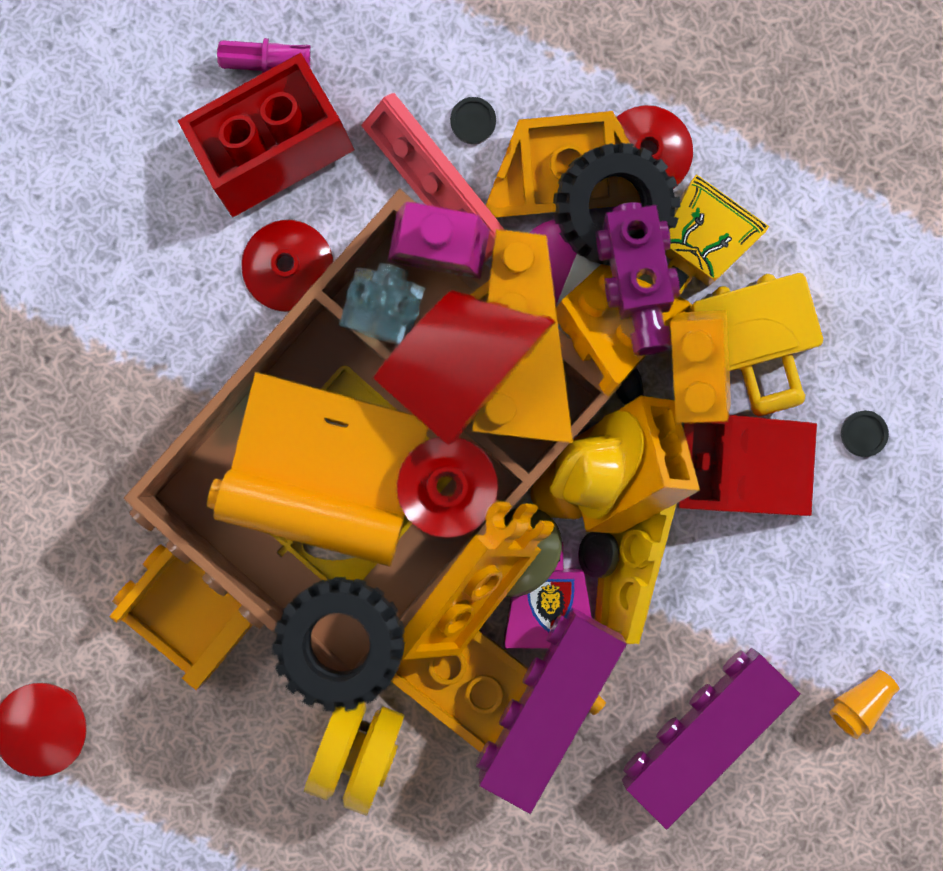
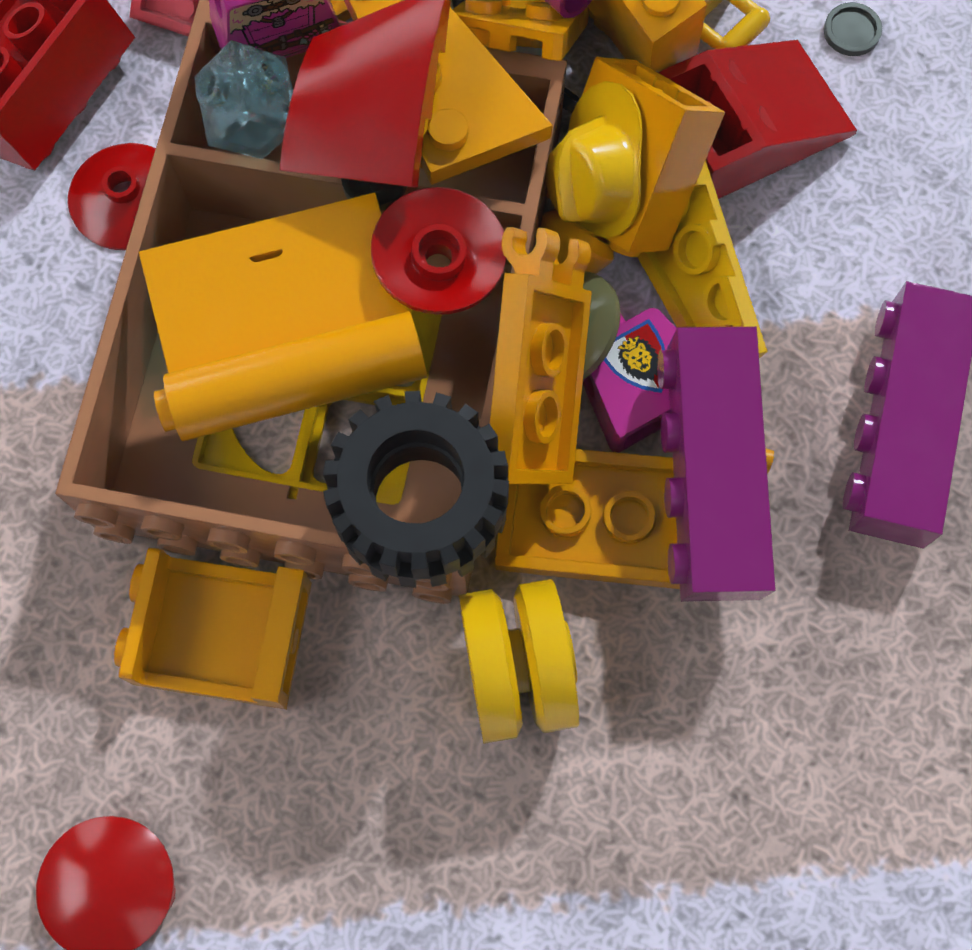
camera: 30 degrees left, 15 degrees down
(598, 554) = (658, 287): pearl dark grey piece -> none

